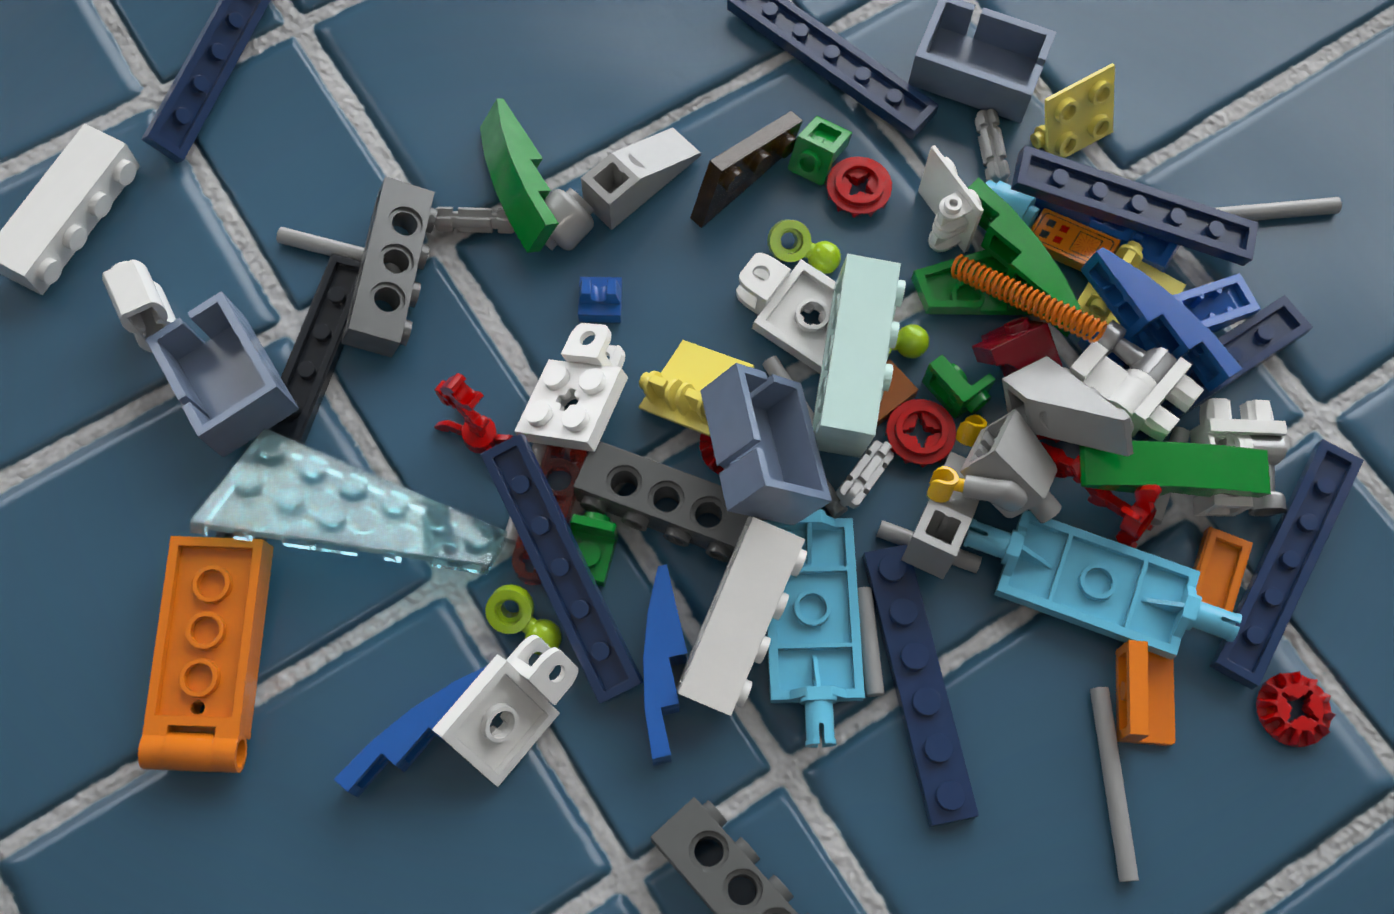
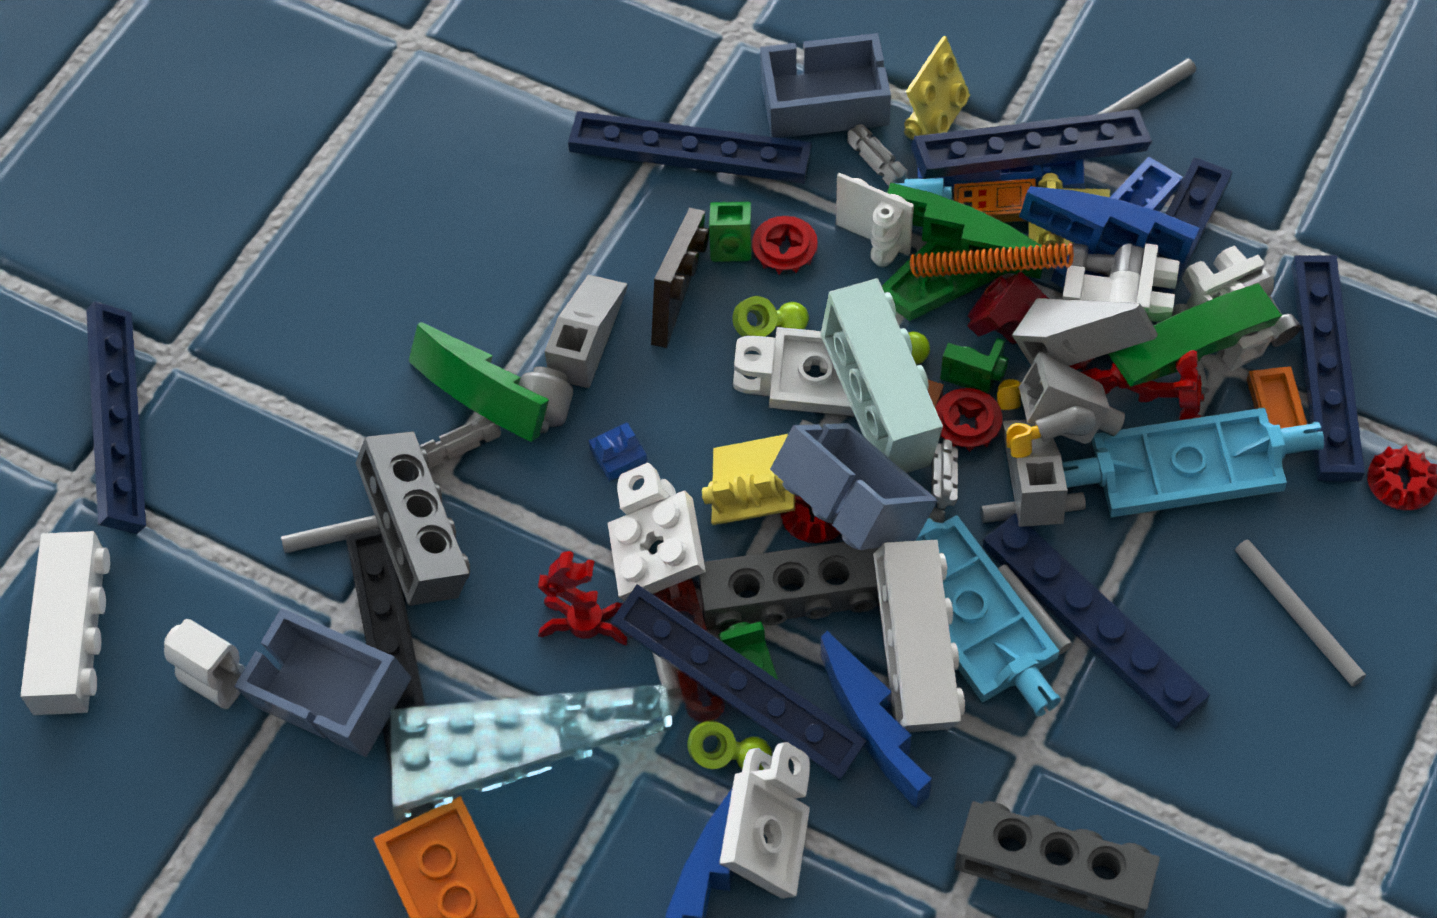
camera: 25 degrees left, 10 degrees down
(1144, 696) = (1280, 530): orange panel -> none

